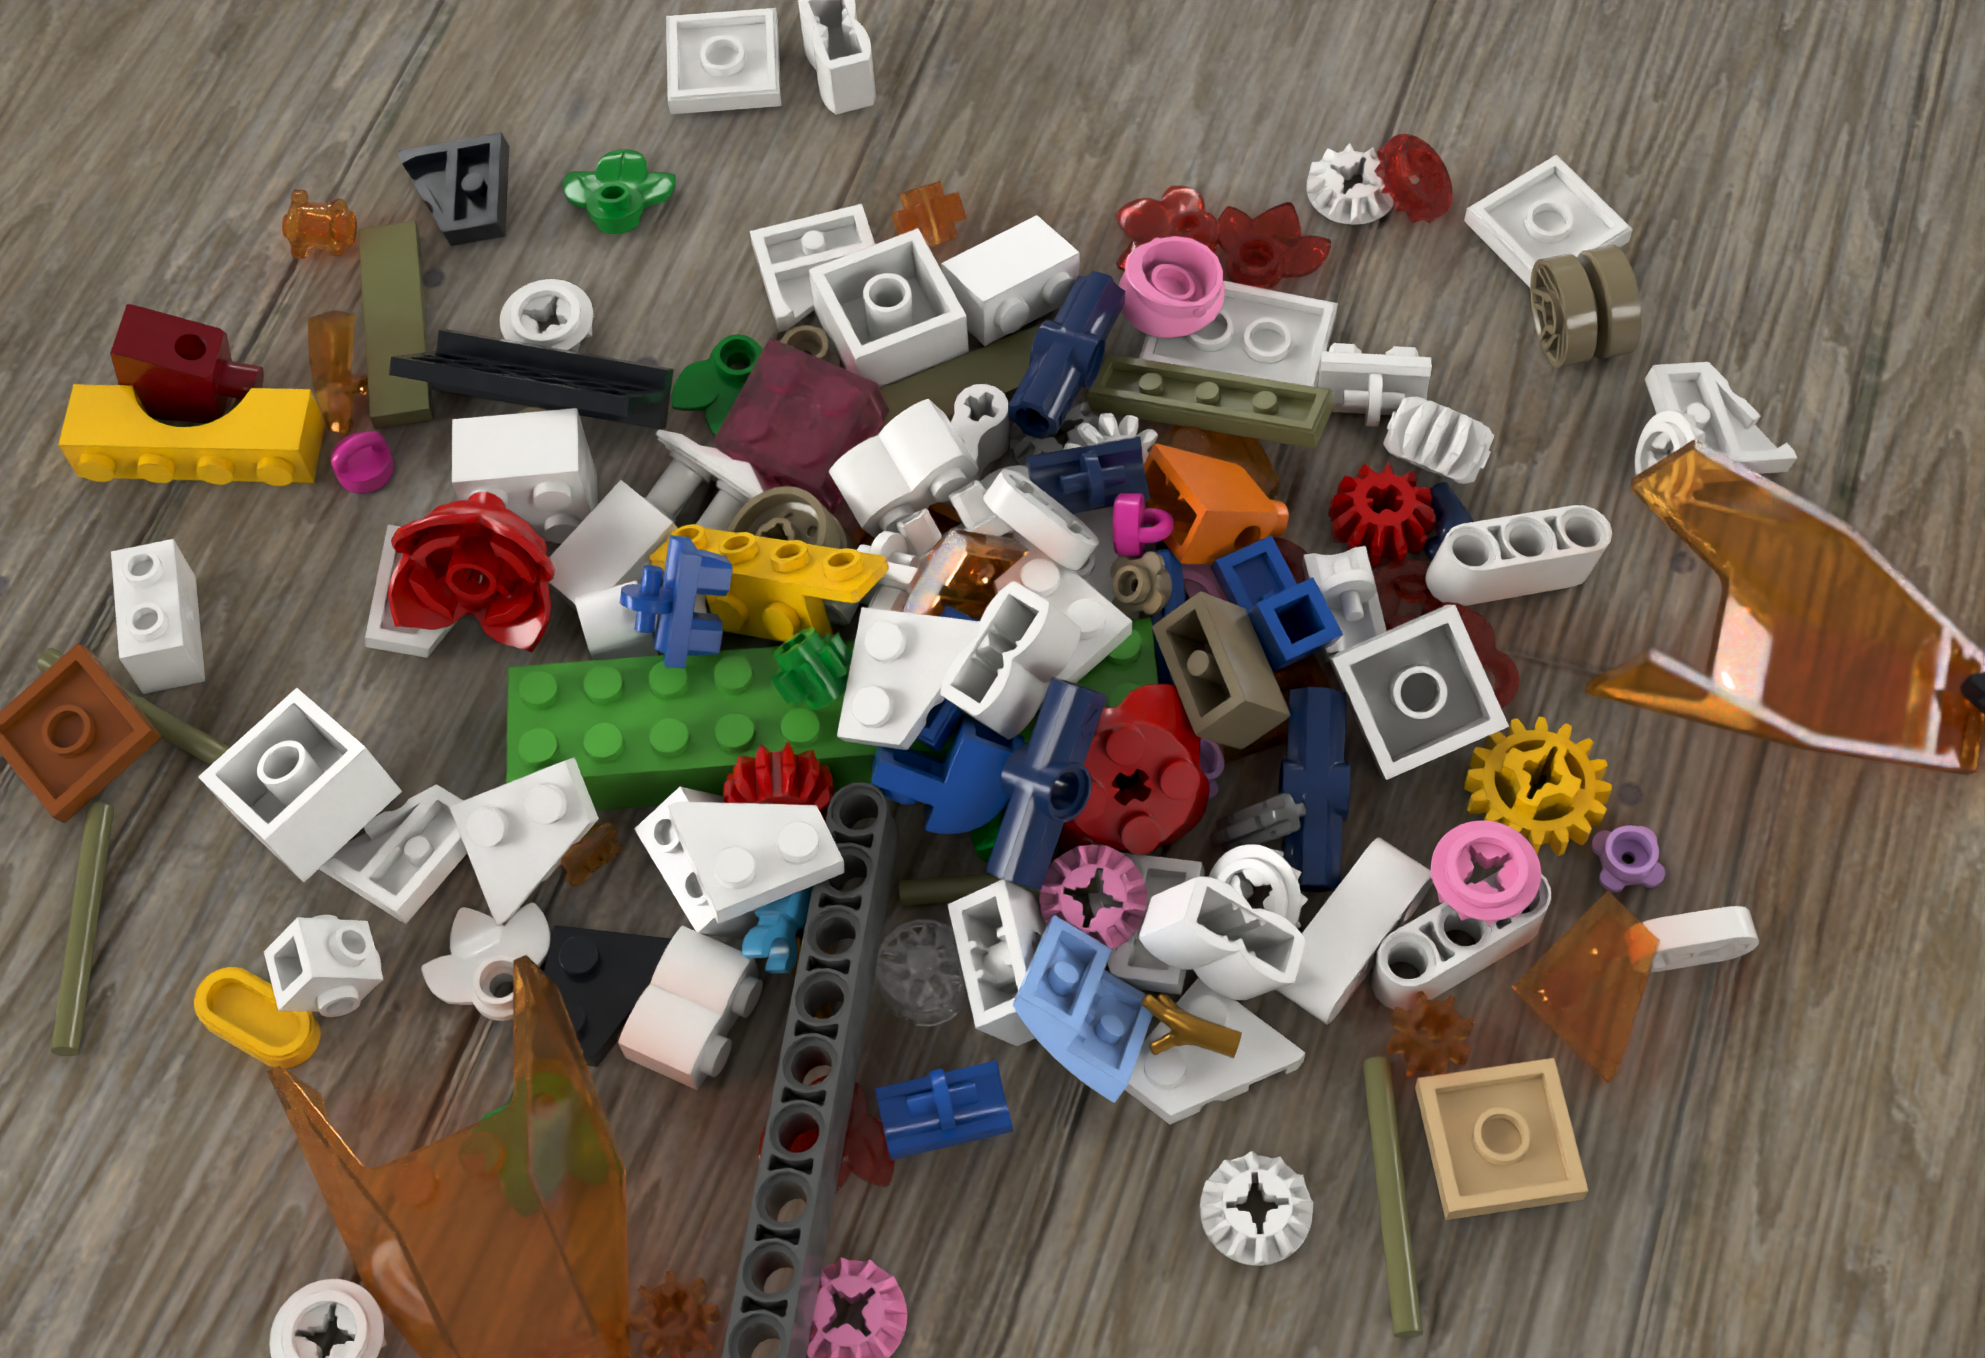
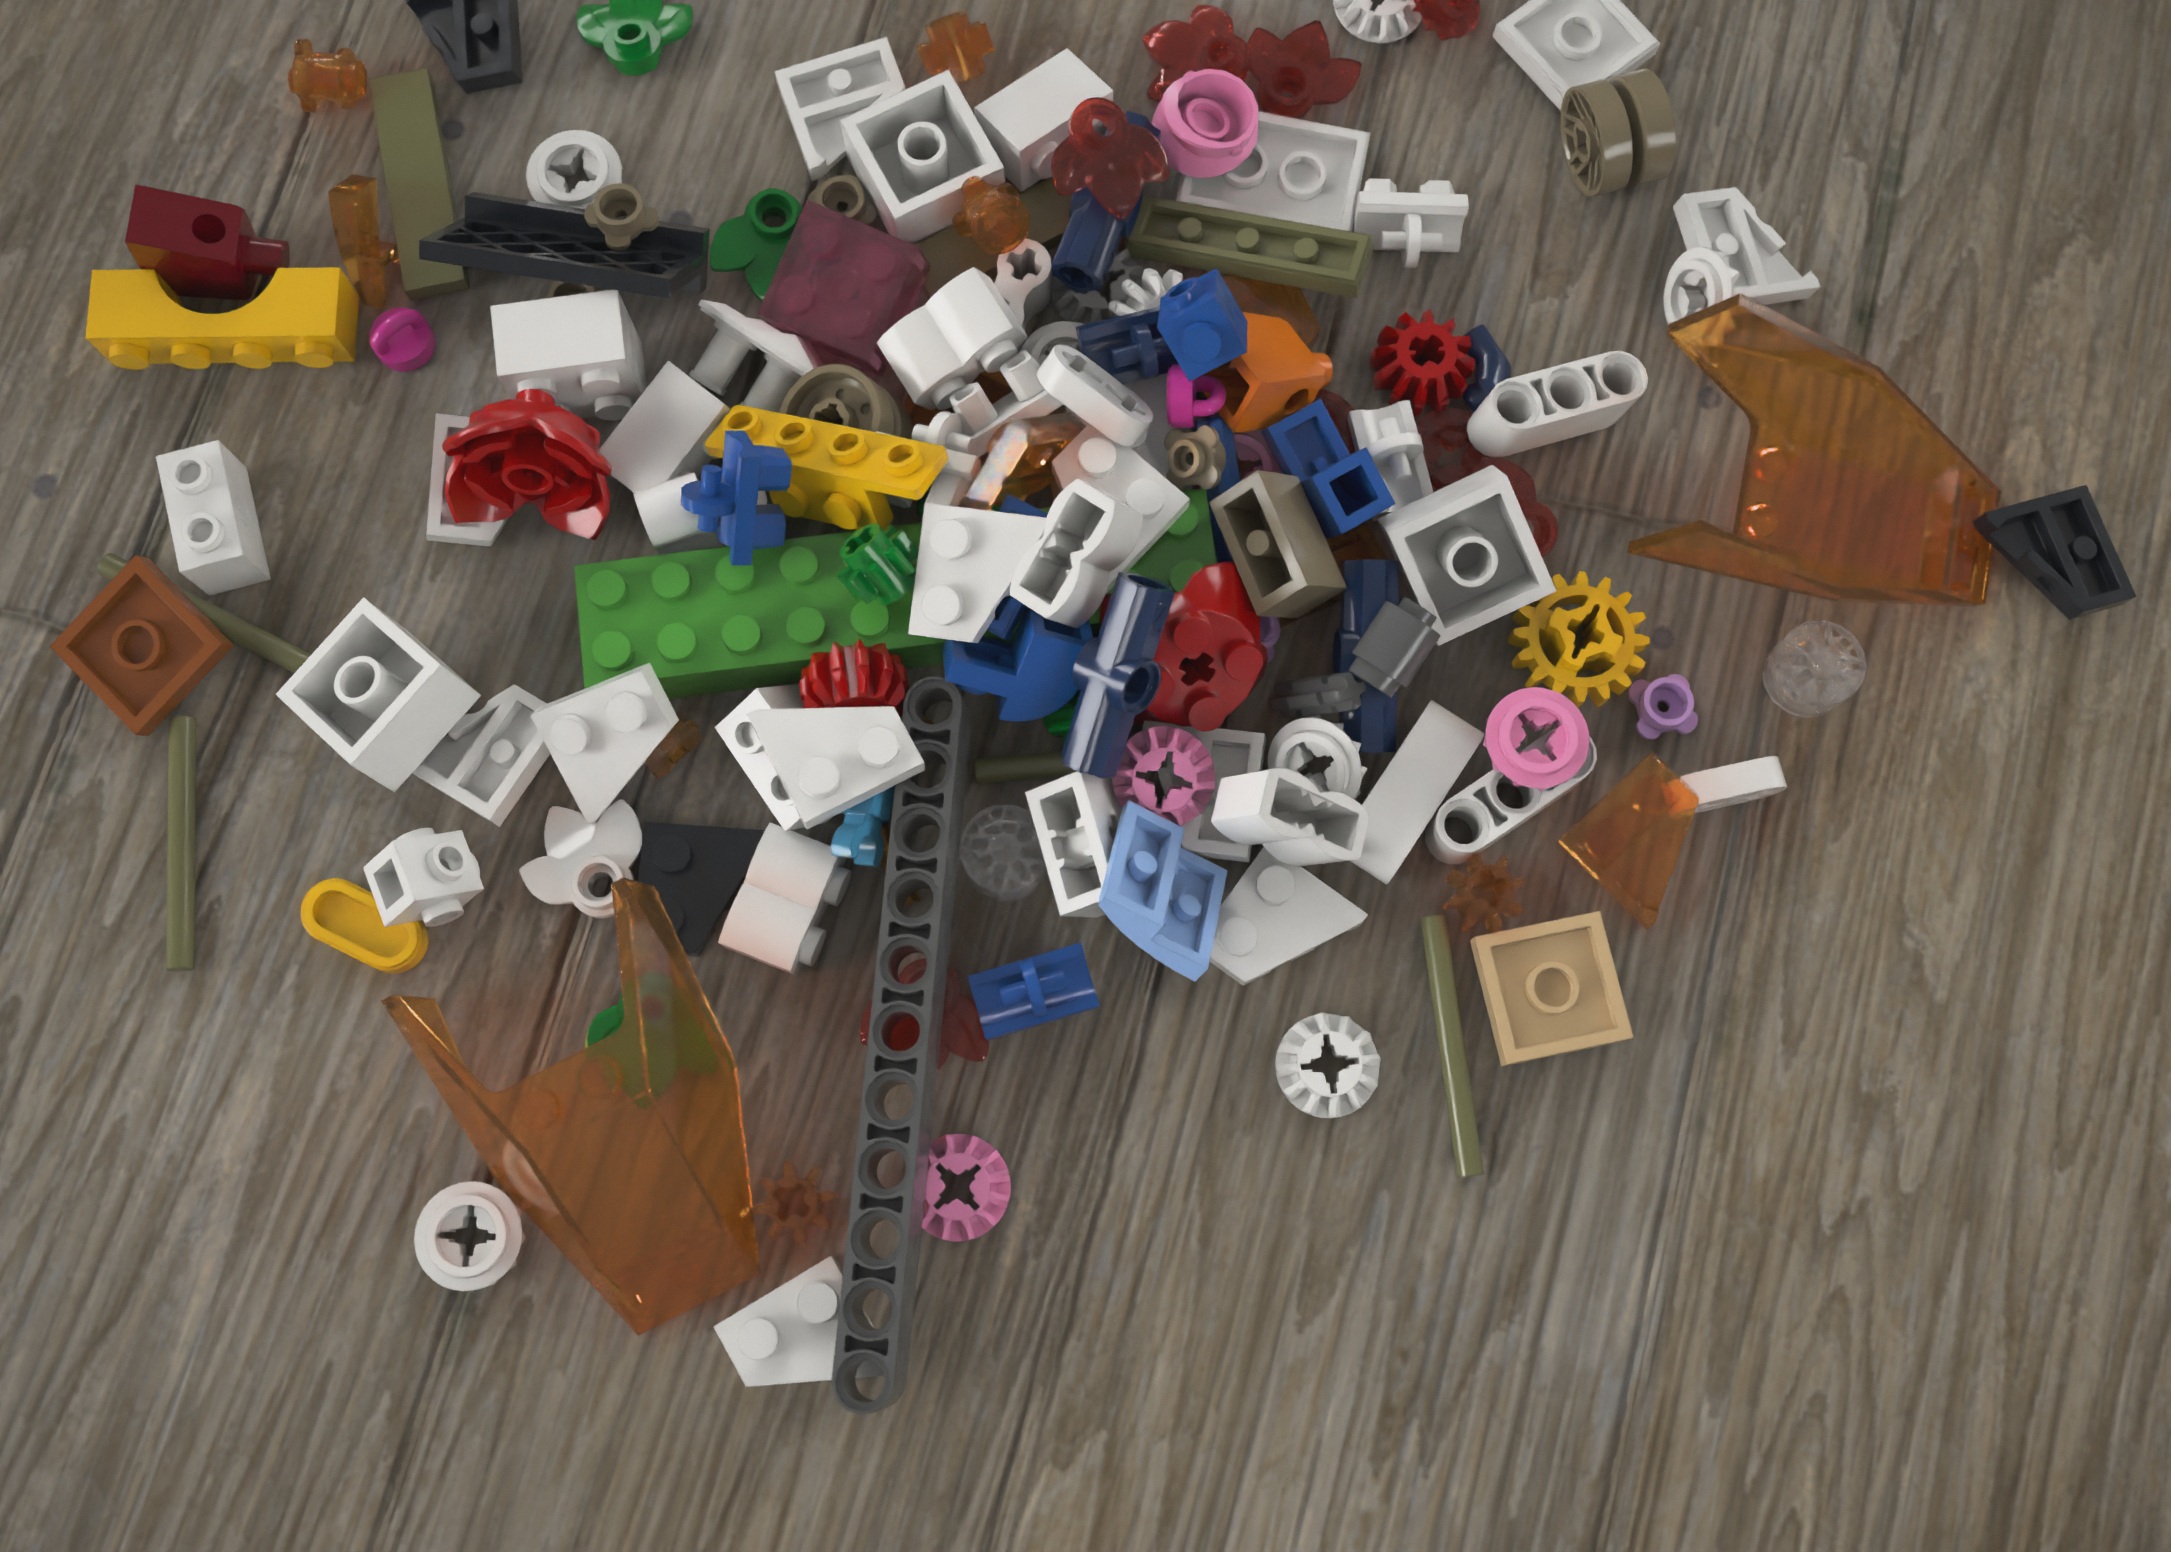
camera: 10 degrees left, 15 degrees up
(587, 348) = (619, 201): none -> dark tan plate
(940, 353) = (992, 216): none -> clear orange brick
(1068, 314) = (1109, 164): none -> clear red plate
(1149, 450) = (1202, 324): none -> blue brick
(1189, 1029) = (1260, 902): pearl gold bar -> none
(1336, 770) = (1394, 646): none -> dark grey brick
(1438, 439) = (1476, 283): white gear -> none
(1788, 829) = (1812, 670): none -> clear wheel

